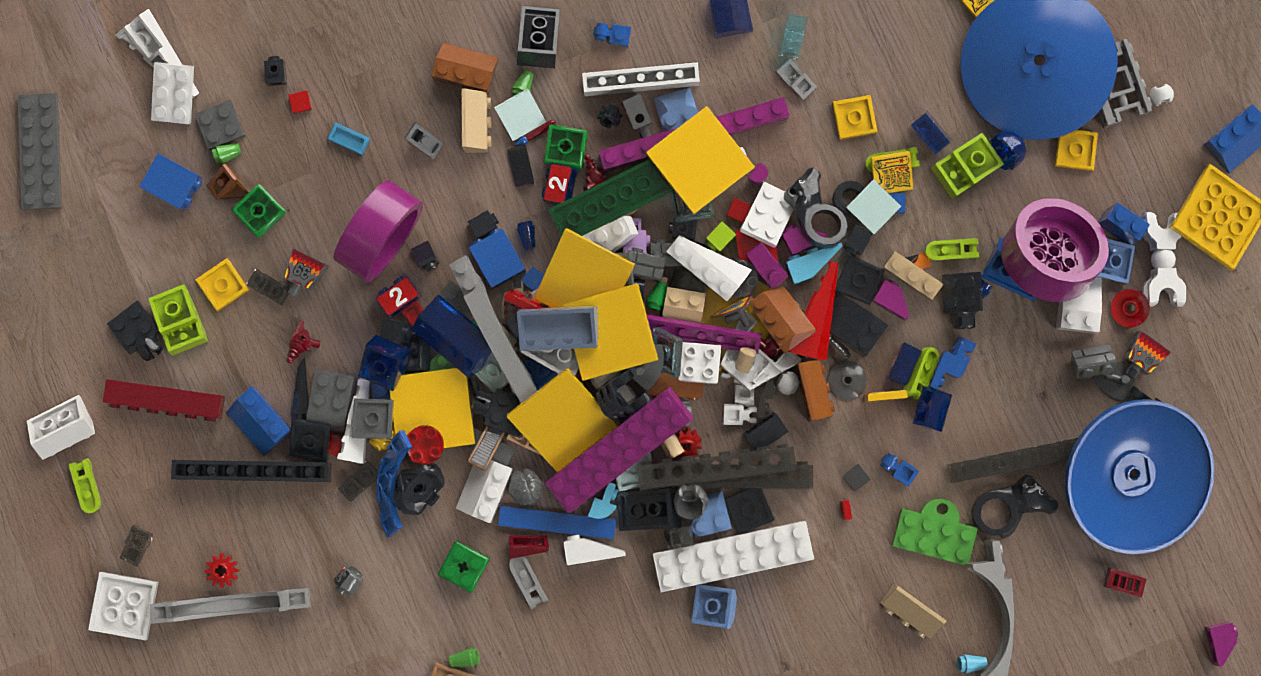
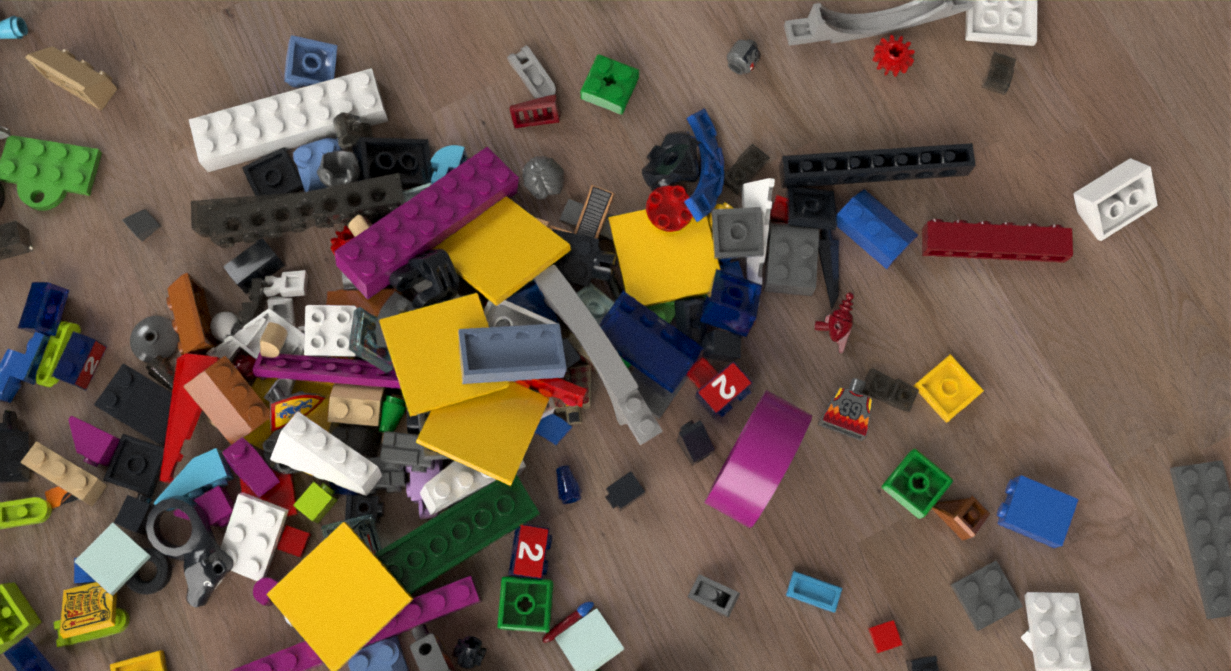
camera: 175 degrees right, 10 degrees down
(85, 486) = (1071, 135): lime plate -> none
(136, 331) = (1044, 320): black plate -> none
(178, 320) = (997, 338): lime slope -> none
(225, 153) = (972, 557): bright green cone -> none
(475, 121) = (647, 628): tan slope -> none
(484, 491) = (593, 162): white slope -> none
(497, 258) = (603, 449): blue brick -> none
(521, 165) = (583, 575): black slope -> none
(556, 522) = (507, 142): blue tile -> none
(585, 550) = (457, 108): white slope -> none
(594, 175) = (484, 569): dark red piece -> none
(845, 509) = (154, 184): red tile -> none
(885, 396) = (100, 317): yellow tile -> none
(903, 472) = (84, 234): blue plate -> none

